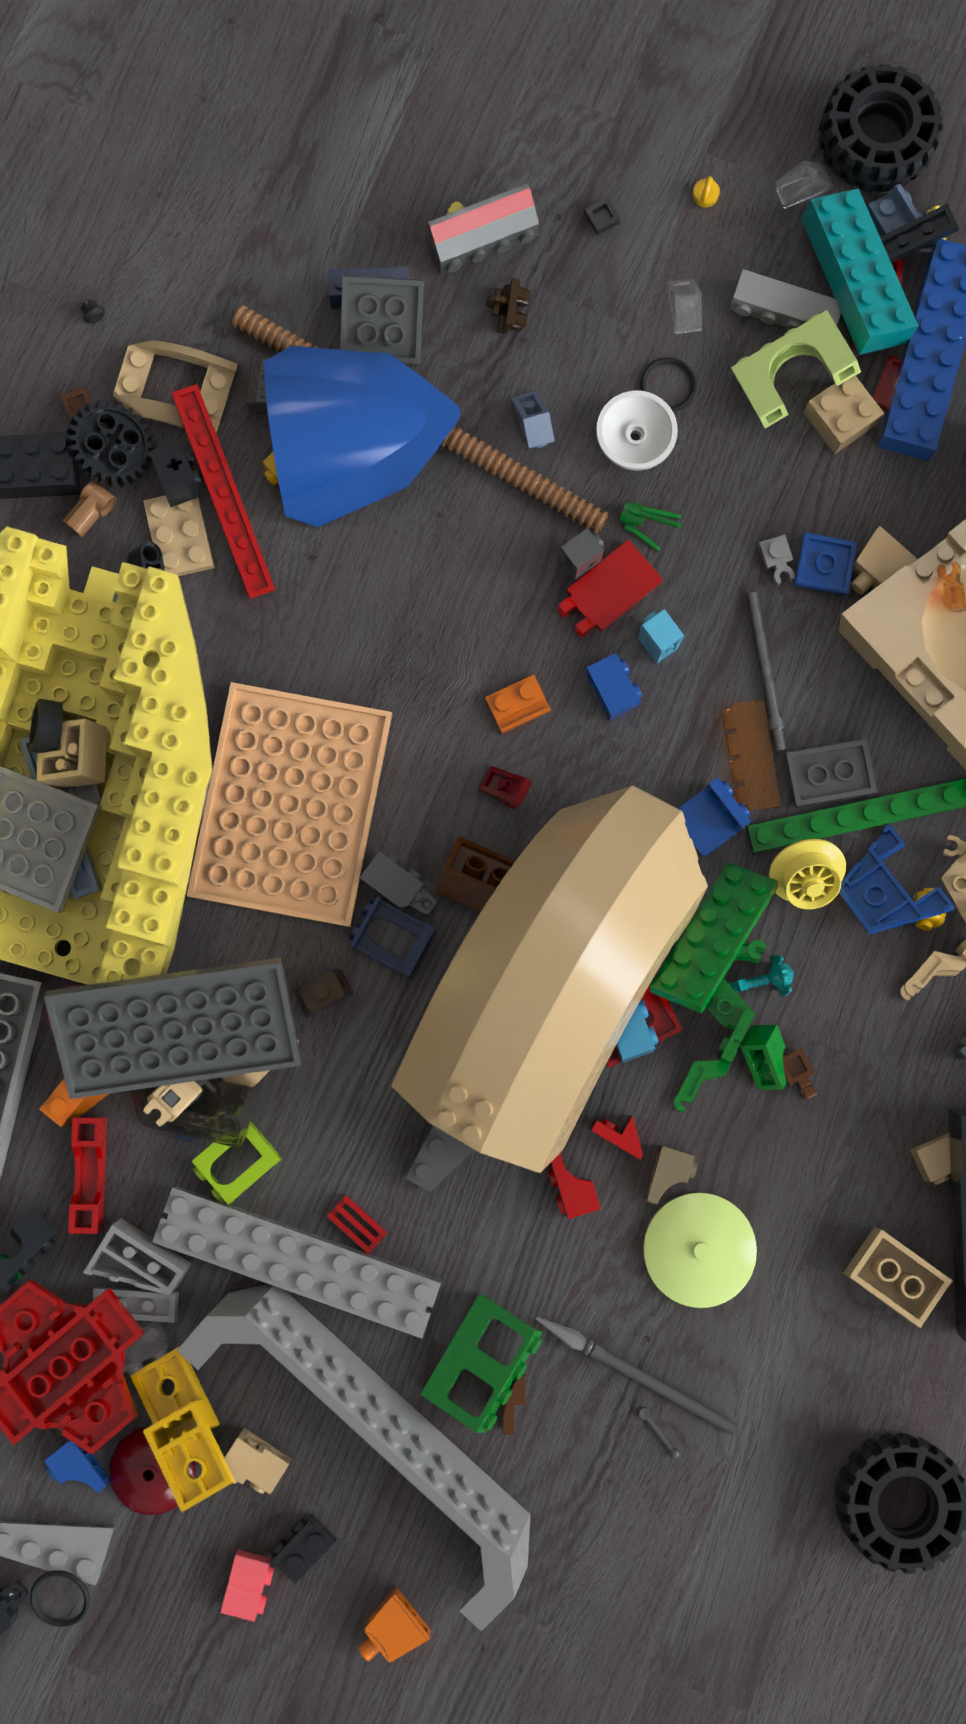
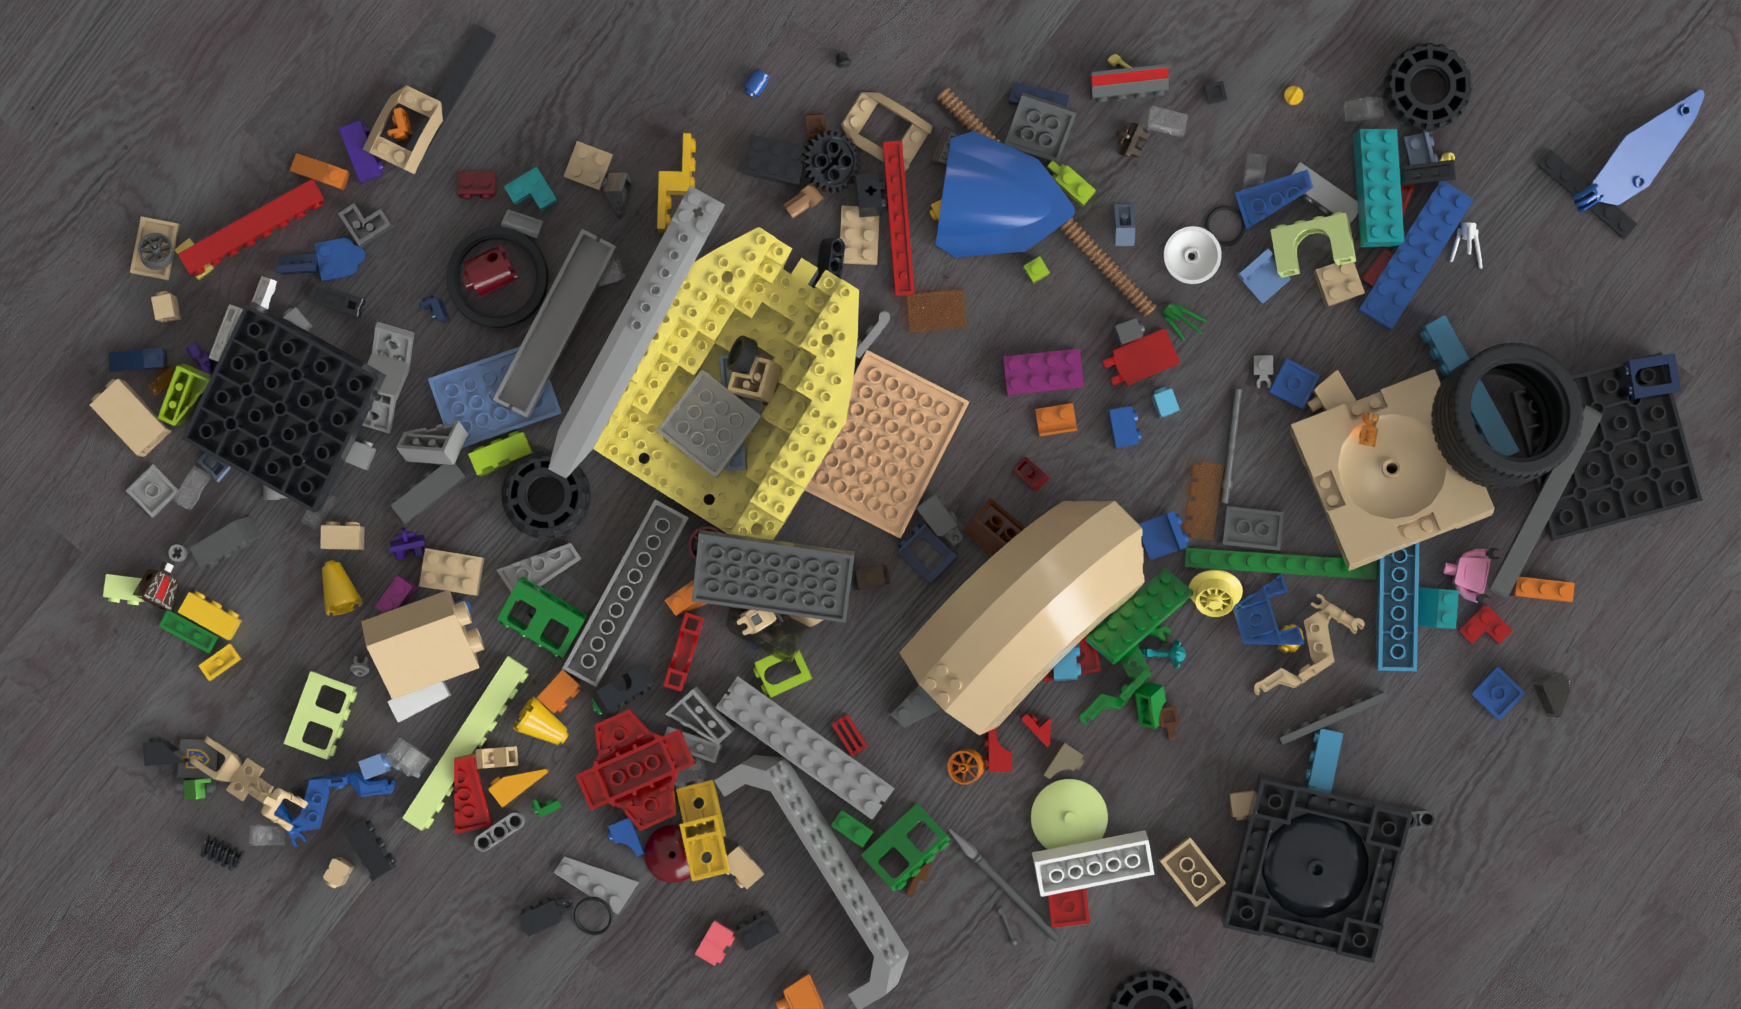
camera: 20 degrees right, 5 degrees up
(232, 660) = (872, 333): none -> light grey plate
(312, 605) = (936, 311): none -> clear orange tile
(397, 1358) = (852, 828): none -> green brick
(431, 510) = (1036, 270): none -> lime brick
(452, 382) = (1071, 183): none -> lime hinge
(481, 643) = (1043, 372): none -> magenta brick
(533, 1220) = (965, 766): none -> orange wheel
(550, 272) = (1167, 121): none -> clear panel
(717, 325) = (1269, 197): none -> blue wing
(737, 1378) = (1069, 908): none -> red plate
(739, 434) = (1262, 277): none -> medium blue bracket
(754, 1307) = (1093, 863): none -> white brick

